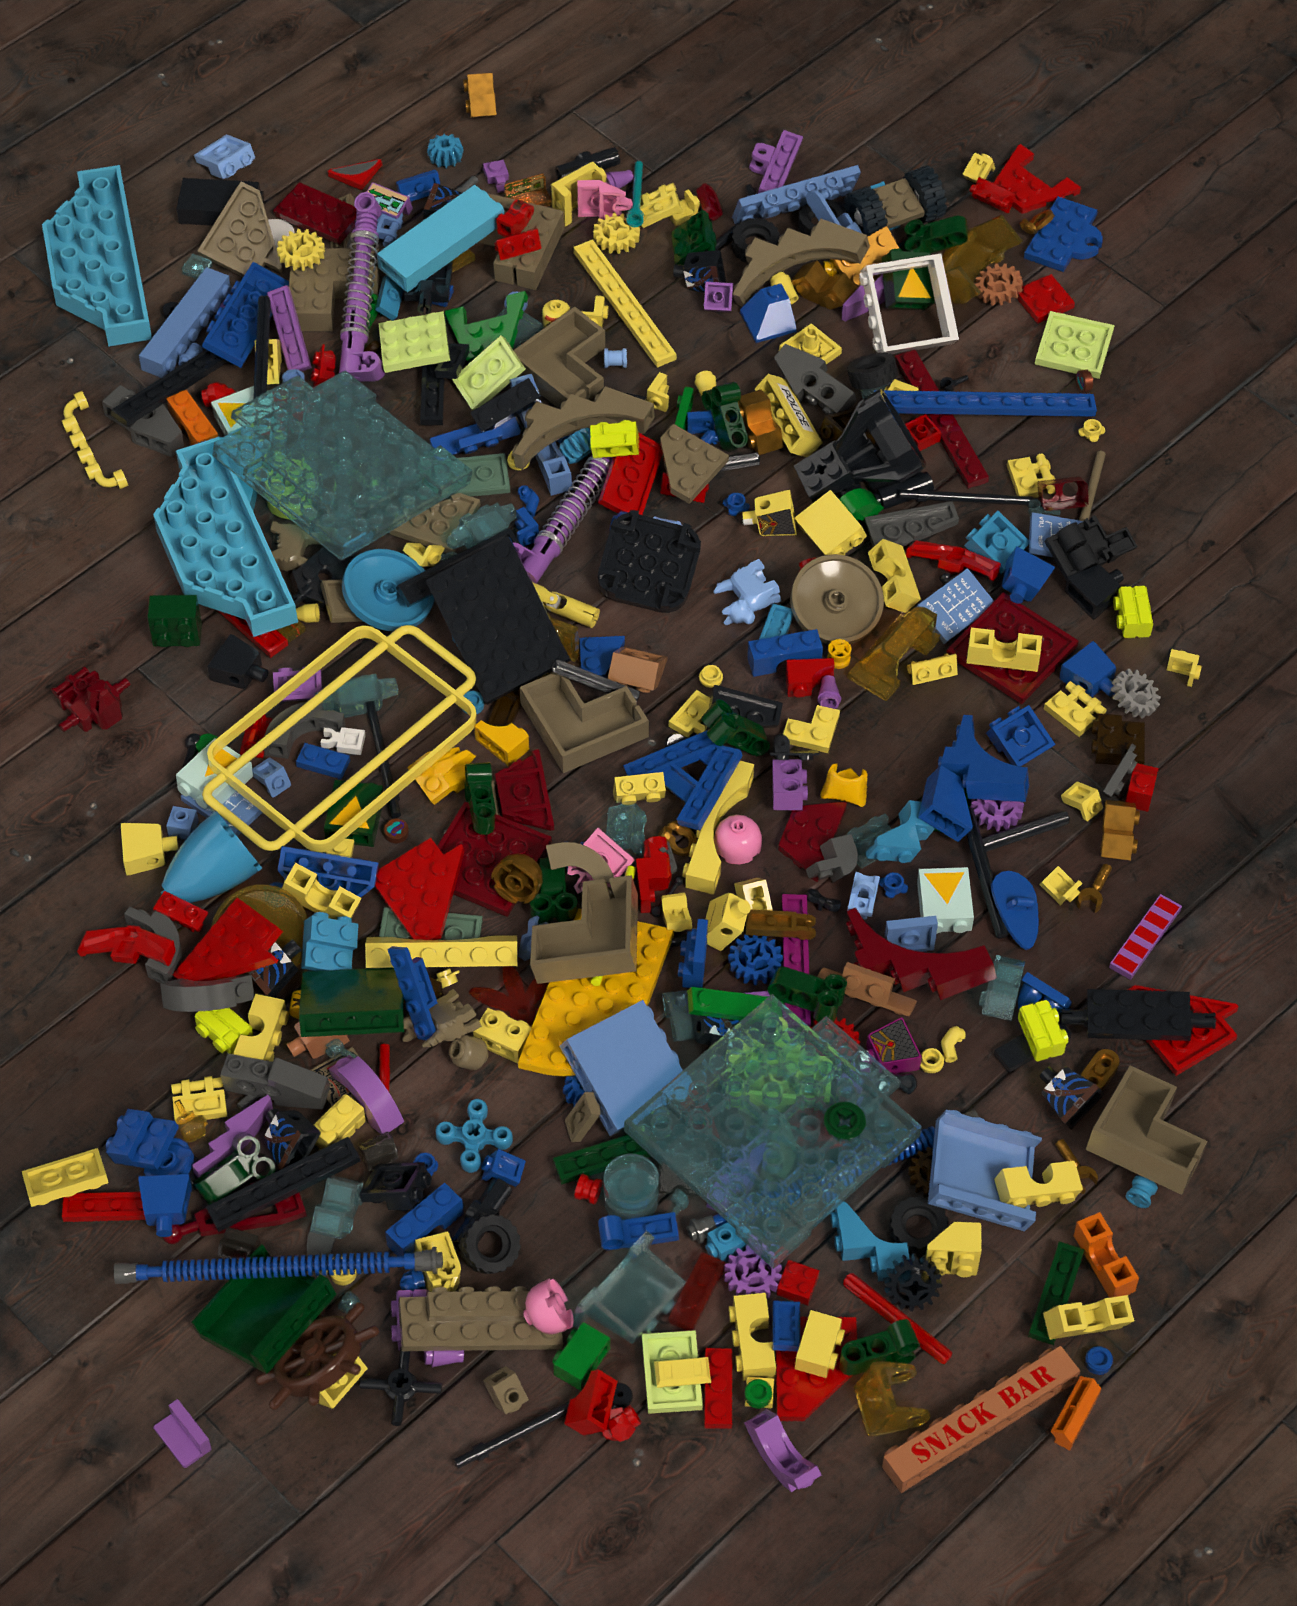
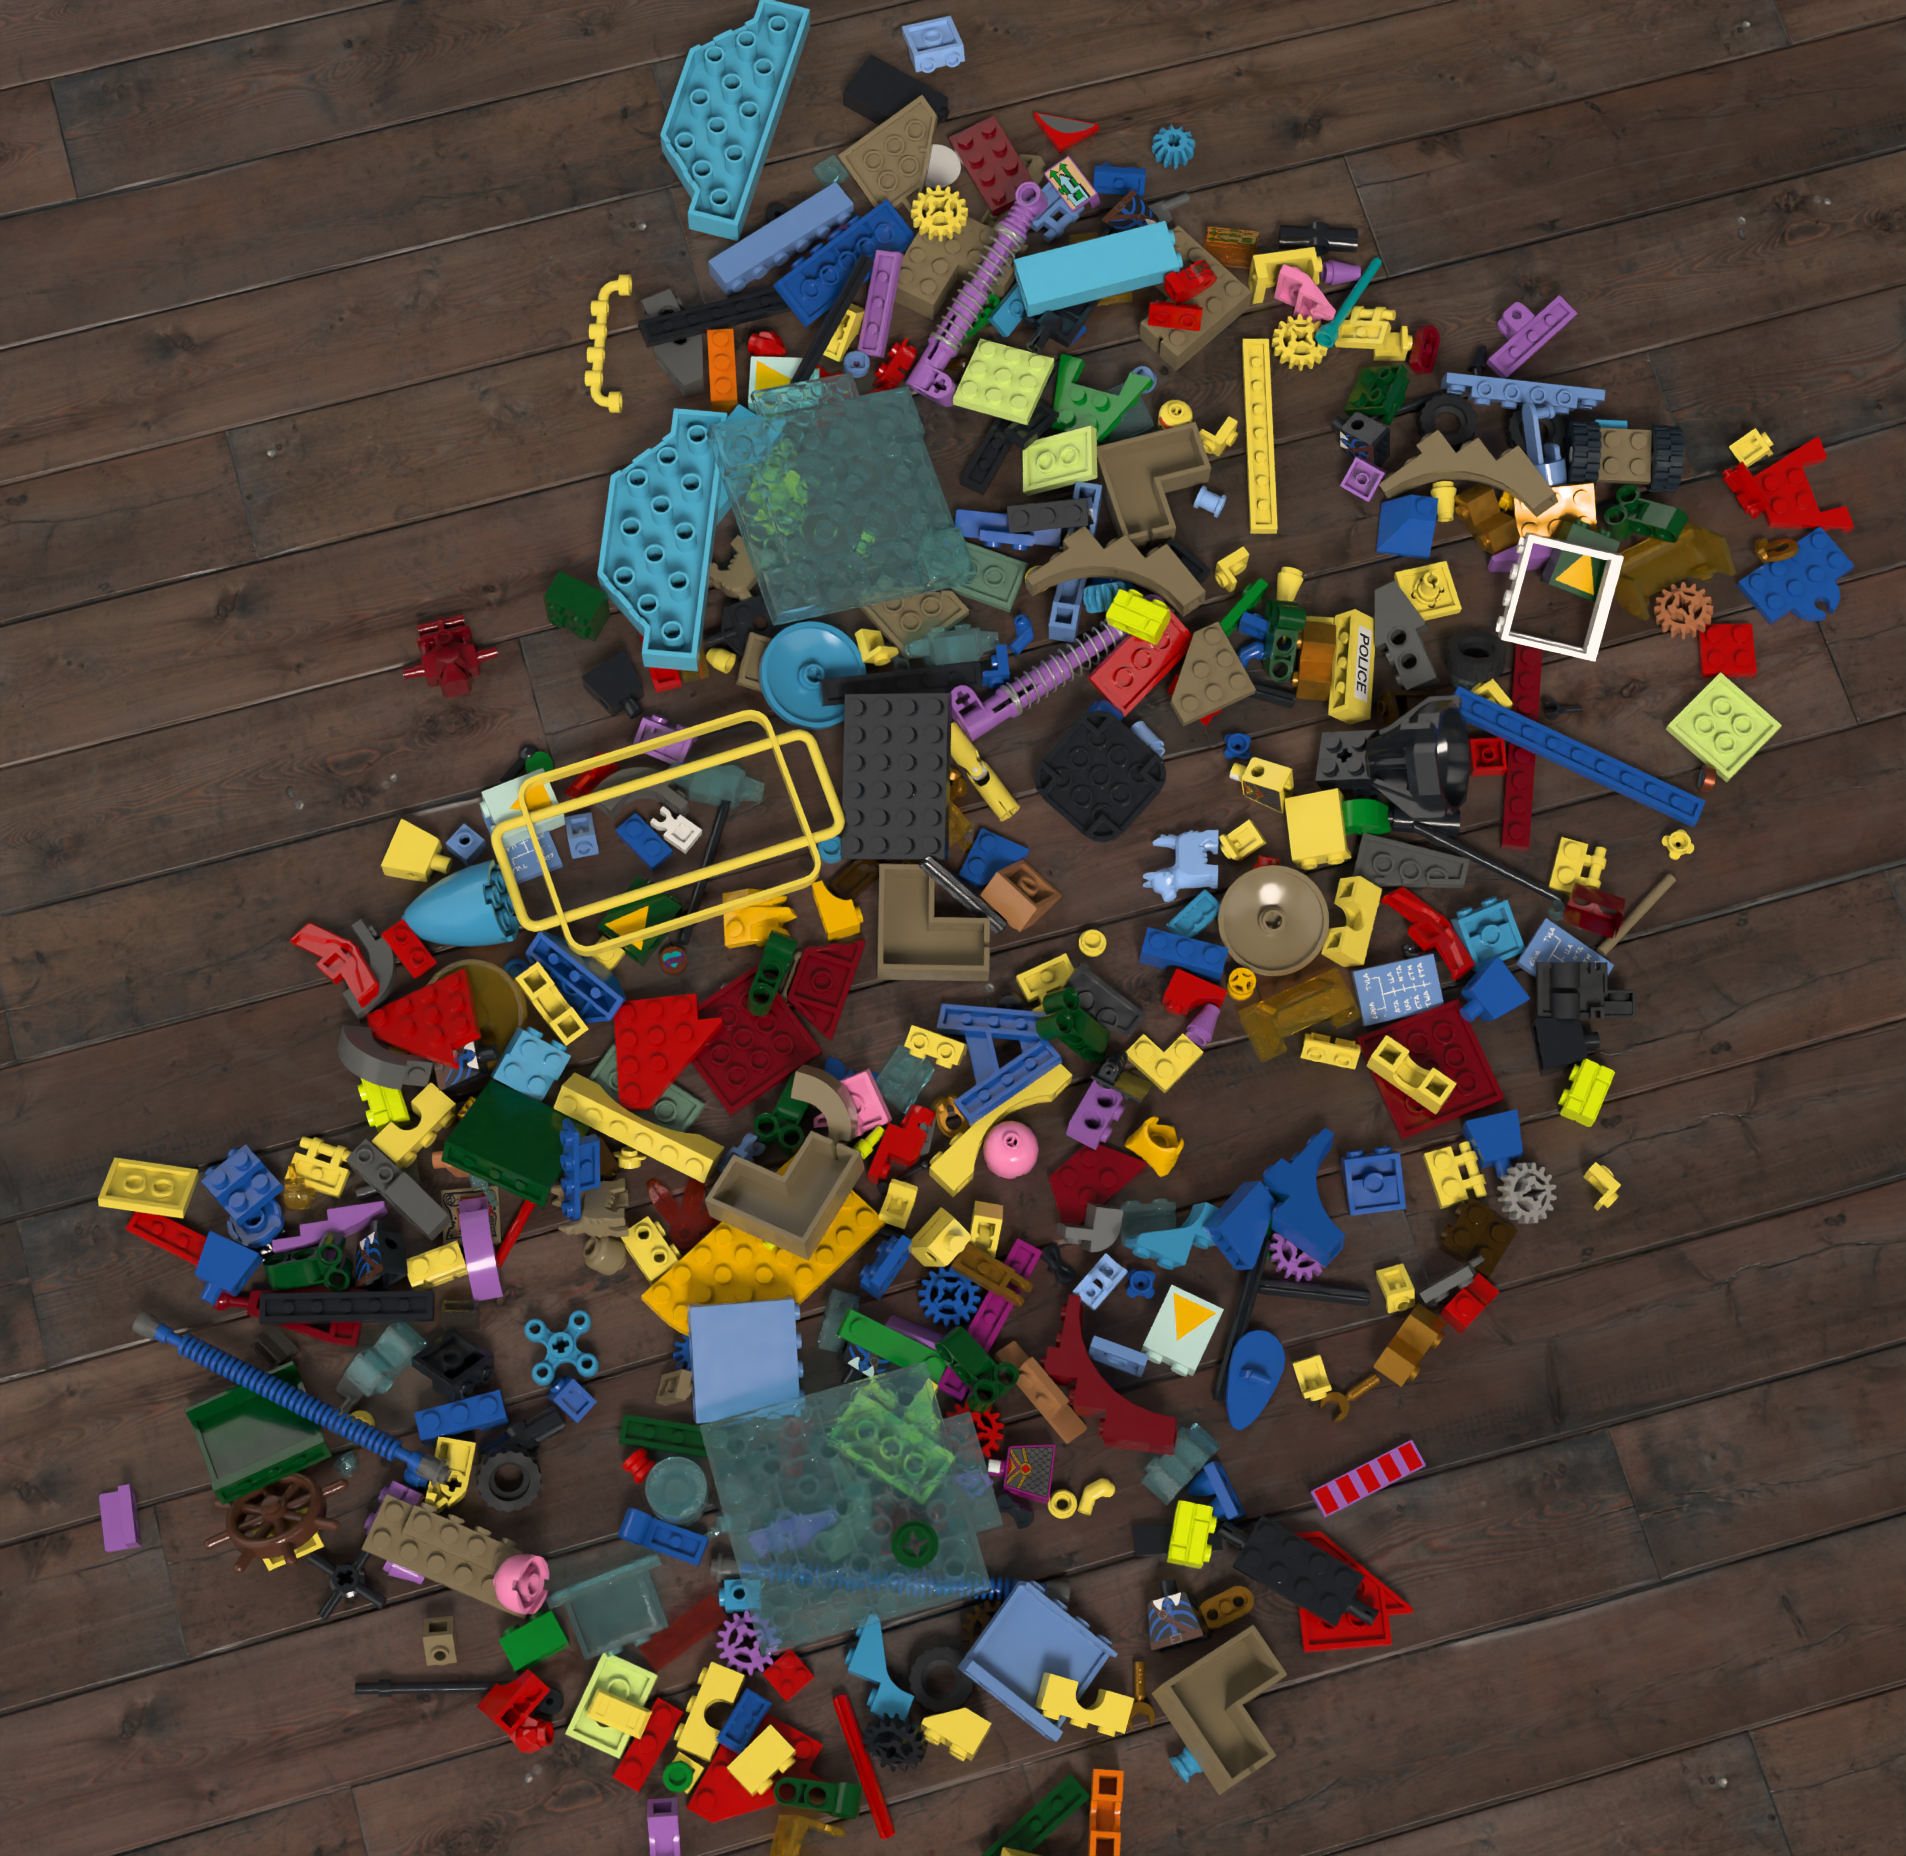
camera: 25 degrees right, 15 degrees up
(193, 350) = (765, 282): medium blue pin -> none
(429, 1161) = (503, 1347): blue plate -> none
(481, 95) = (1252, 91): pearl gold brick -> none
(496, 173) = (1214, 201): medium lavender plate -> none
(517, 878) = (756, 1086): pearl gold cylinder -> none
(780, 561) = (1242, 841): none -> light yellow bracket

